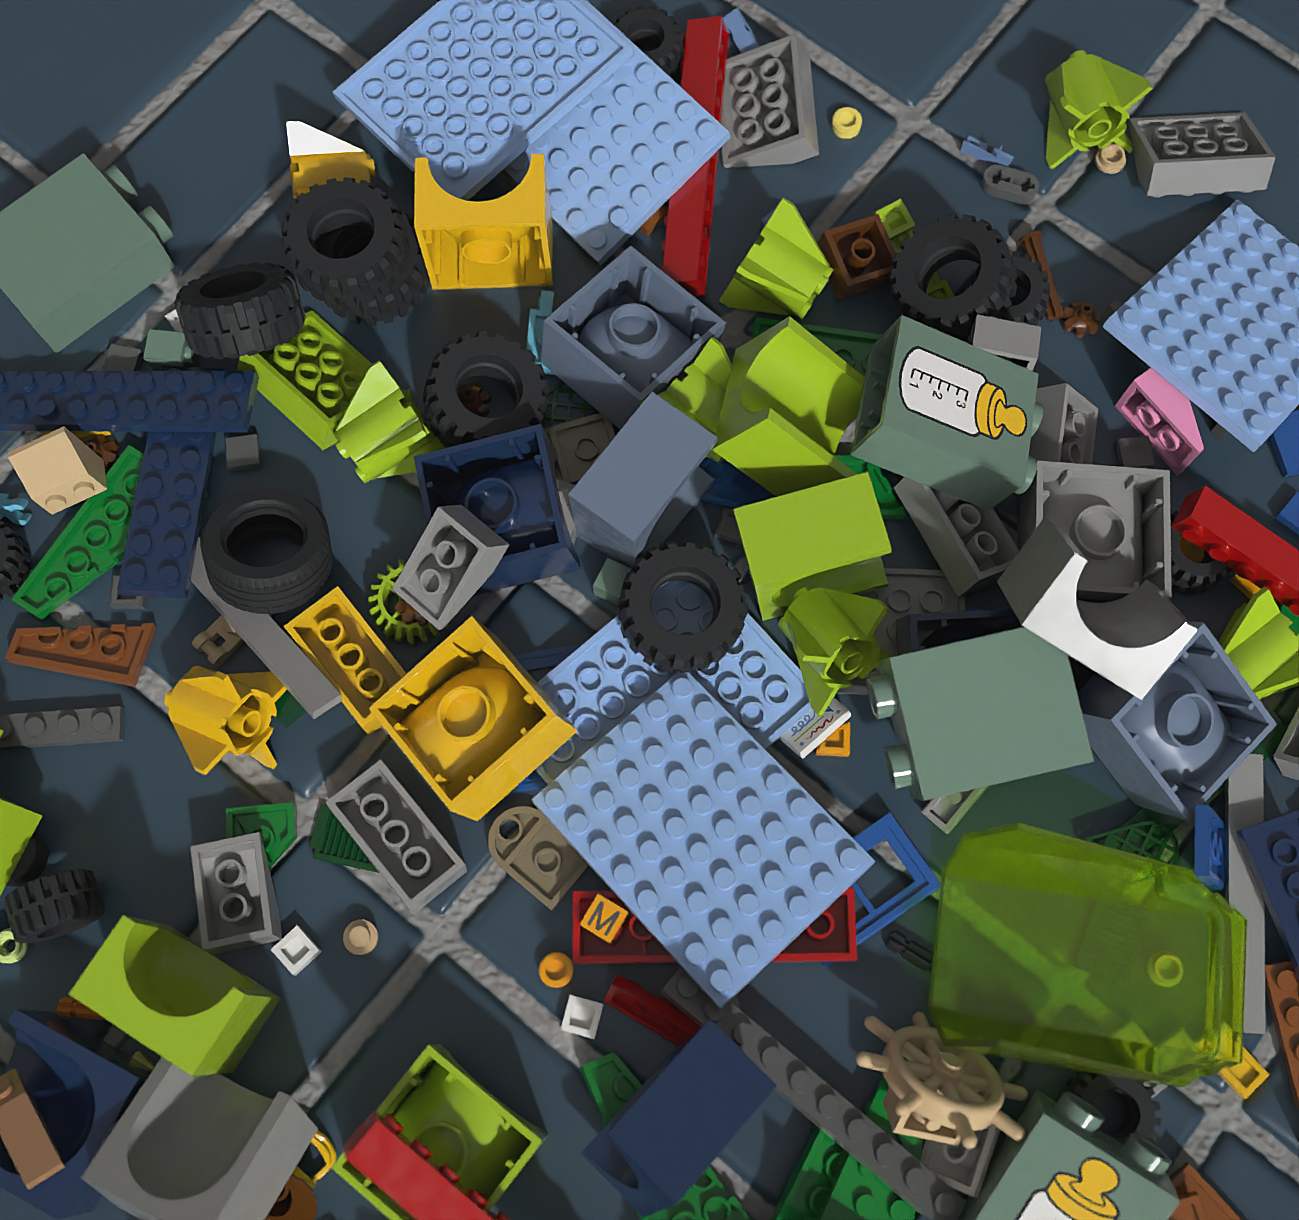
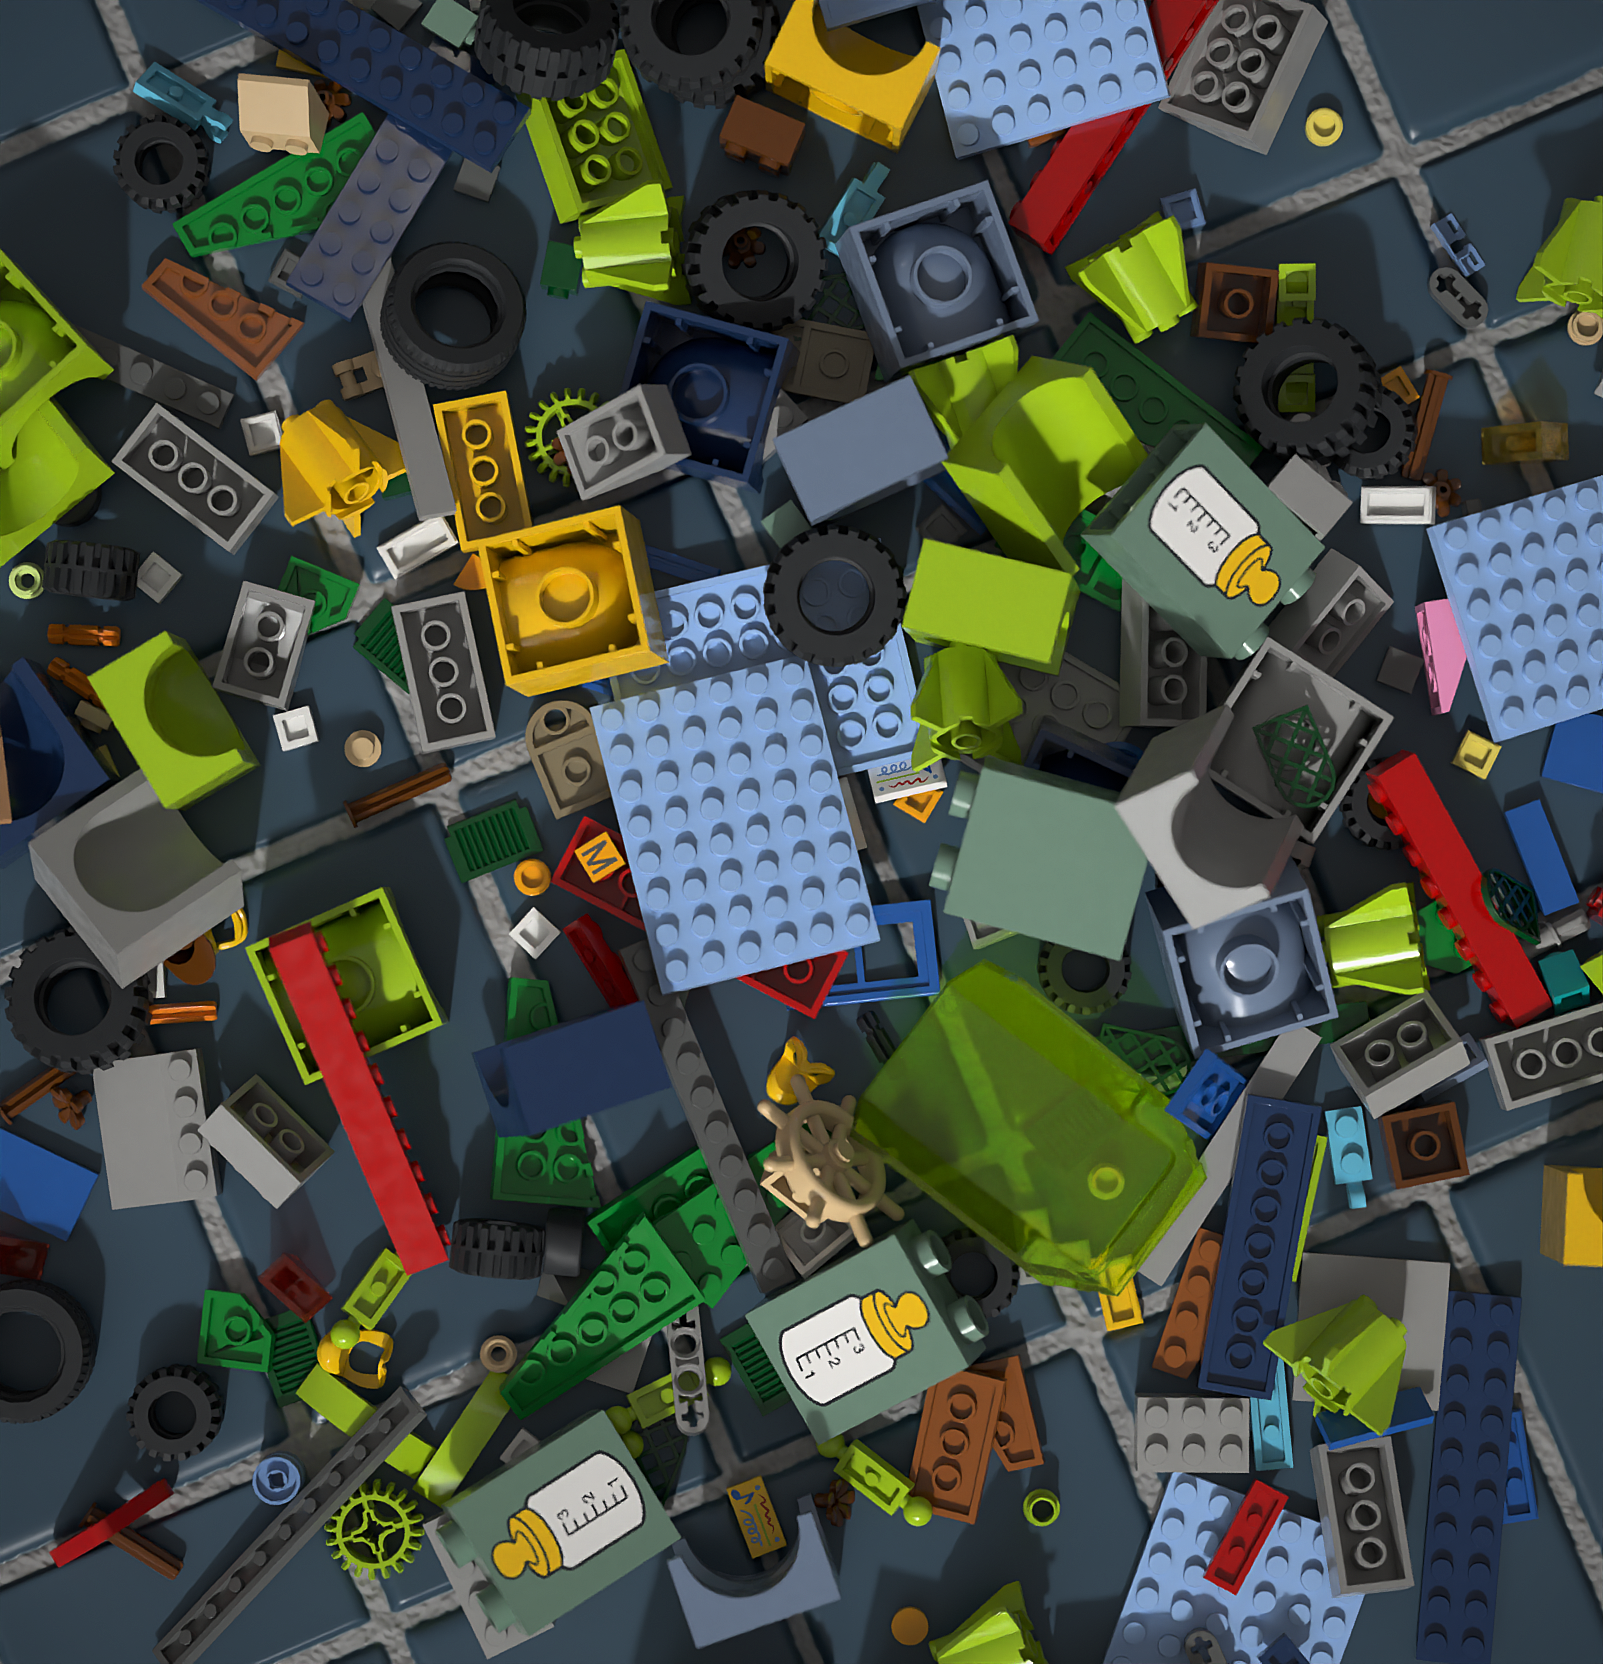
camera: 30 degrees right, 15 degrees up
(69, 970) = (84, 635): none -> orange axle
(111, 1032) = (94, 717): none -> tan plate
(114, 786) = (195, 479): none -> light grey brick
(121, 886) = (157, 577): none -> white tile
(157, 725) = (262, 432): none -> white tile
(328, 748) = (417, 546): none -> white tile
(341, 482) = (561, 271): none -> dark green brick
(384, 748) = (471, 576): none -> light orange tile
(407, 959) = (397, 793): none -> reddish brown axle
(443, 310) = (761, 137): none -> reddish brown brick
(507, 957) = (492, 840): none -> dark green window
(852, 1027) = (779, 1077): none -> yellow piece
(1064, 336) = (1398, 505): none -> white tile
(1068, 790) = (1081, 1001): none -> black tyre
(1121, 252) = (1525, 443): none -> clear yellow slope
(1136, 525) = (1325, 756): none -> dark green window
(1230, 484) = (1476, 754): none -> light yellow tile

